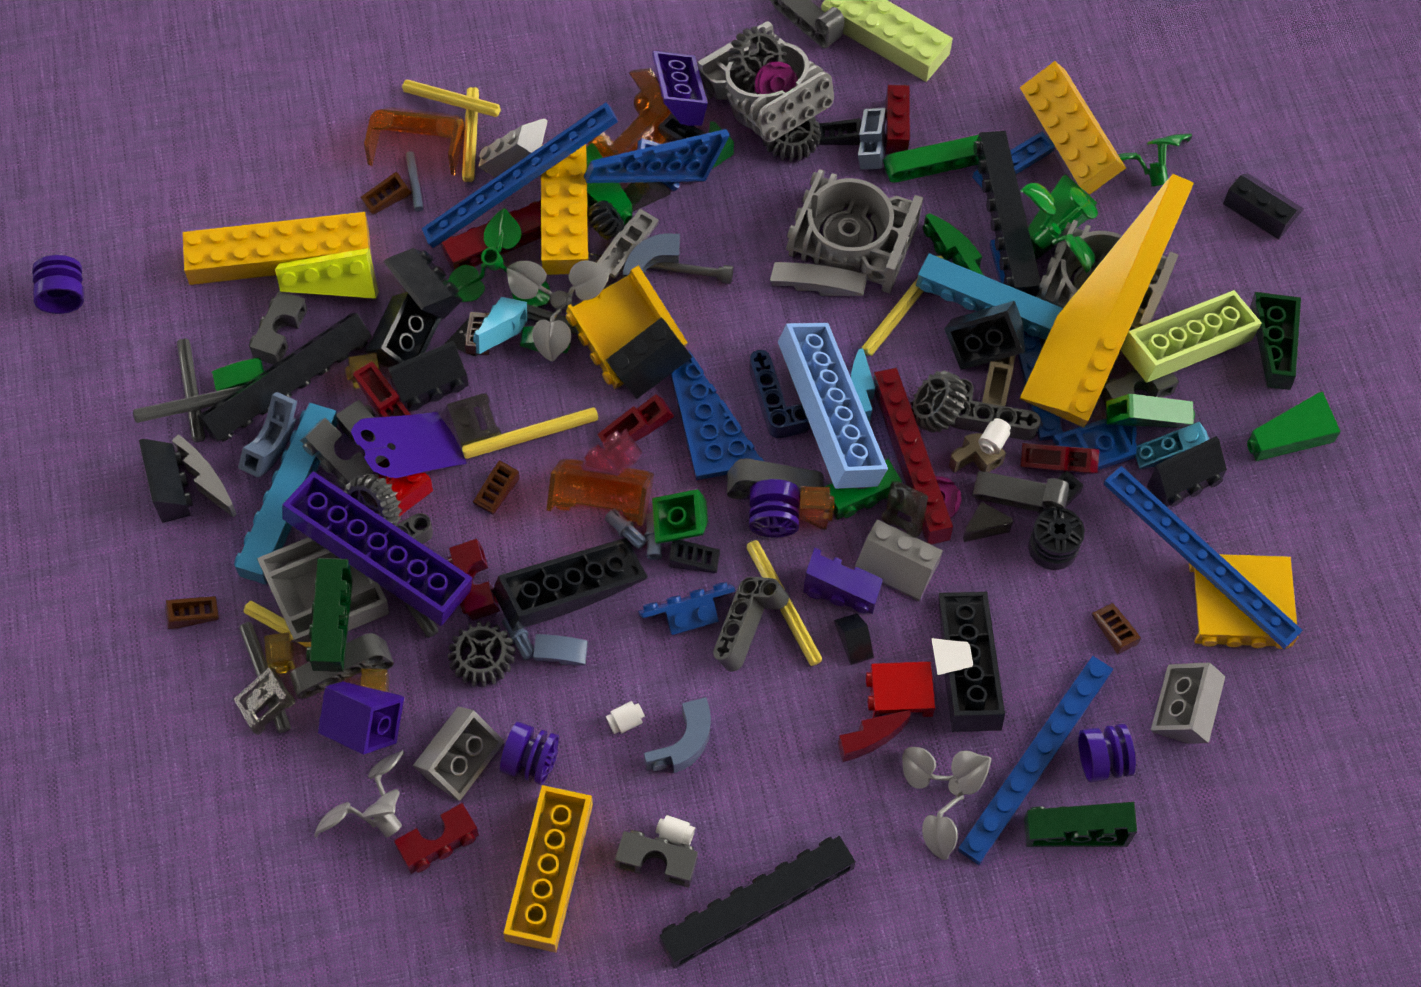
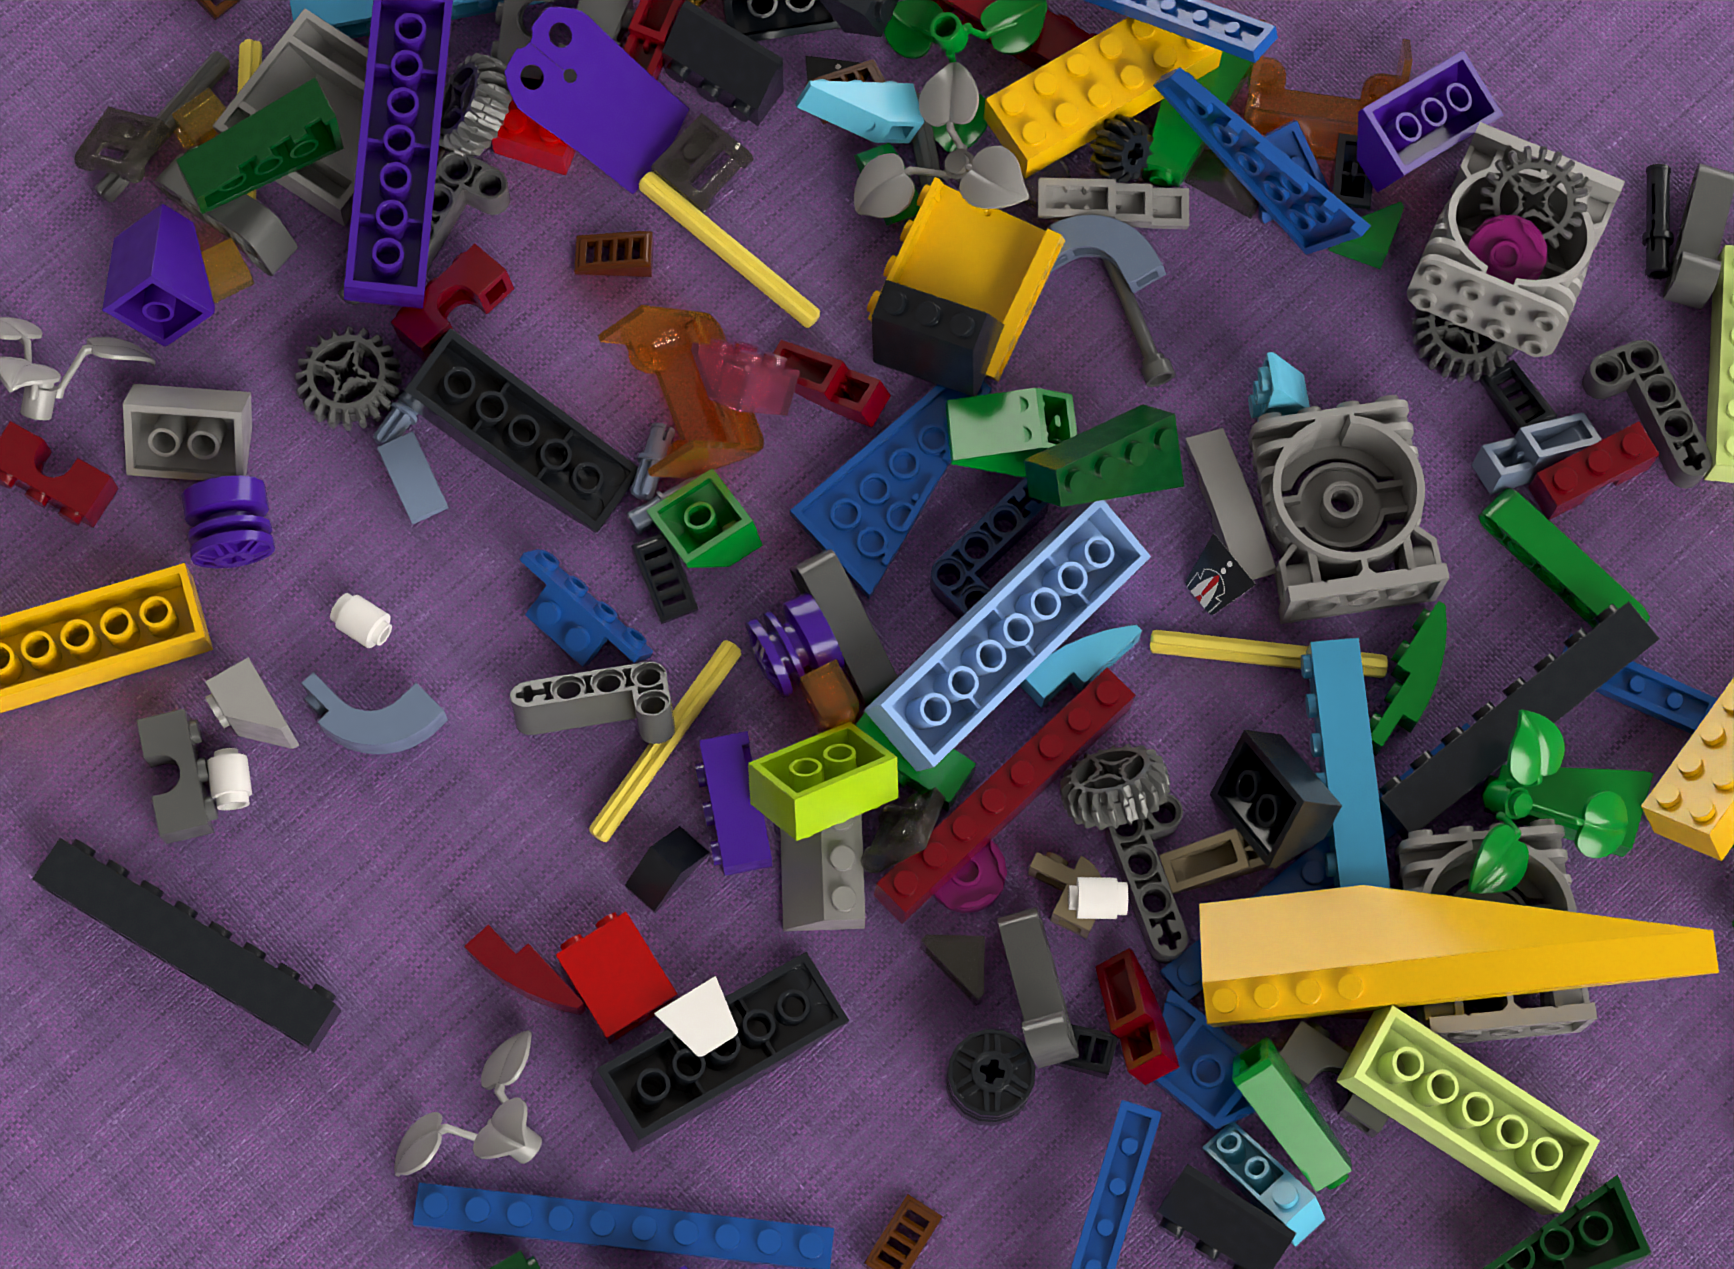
camera: 60 degrees right, 10 degrees up
(645, 794) = (245, 704): none -> light grey slope
(725, 347) = (1007, 427): none -> green slope
(770, 308) = (1110, 461): none -> dark green wedge
(777, 225) = (1277, 389): none -> medium azure slope
(807, 38) = (1658, 235): none -> black pin
(853, 303) = (1217, 577): none -> black sticker
(863, 525) = (823, 780): none -> lime brick
(878, 75) = (1653, 415): none -> dark grey beam

